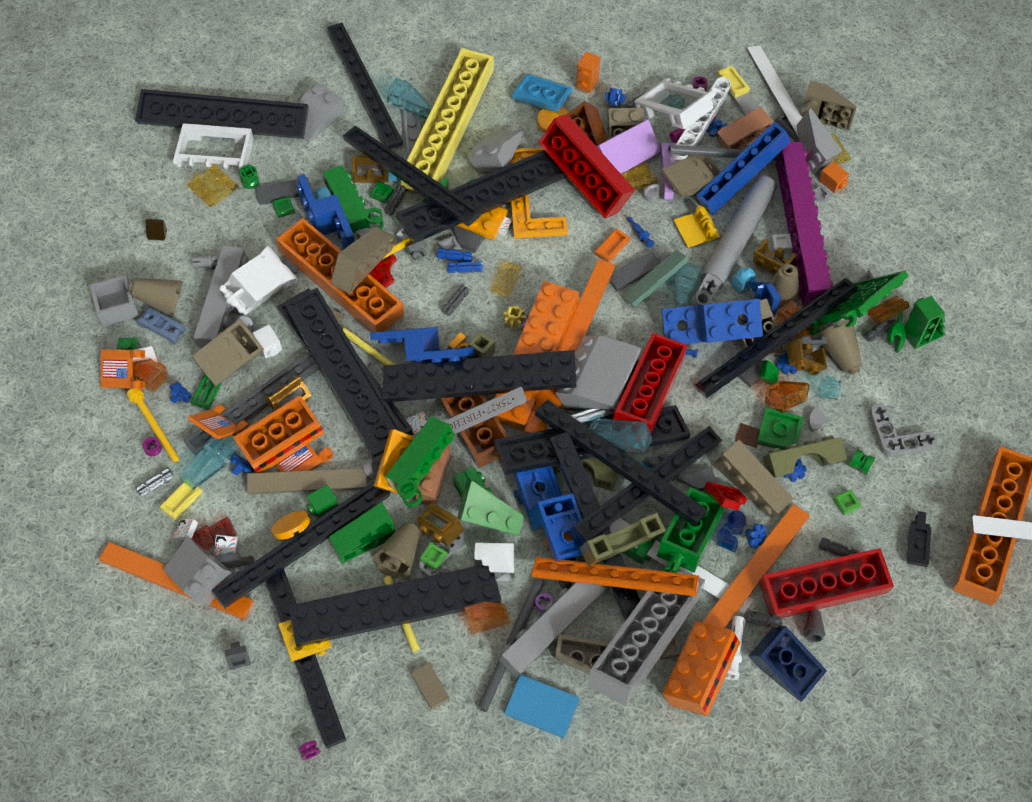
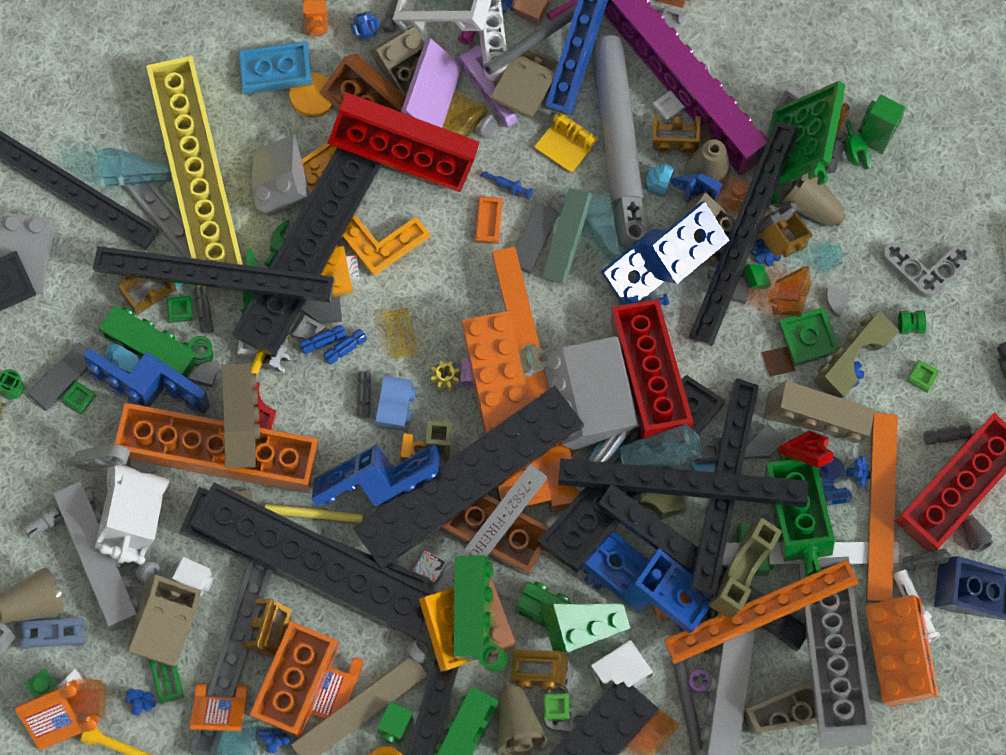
camera: 40 degrees left, 10 degrees up
(263, 237) = (101, 457): none -> light grey beam
(470, 314) = (394, 403): none -> medium blue brick
(572, 330) = (530, 361): none -> clear light blue tile

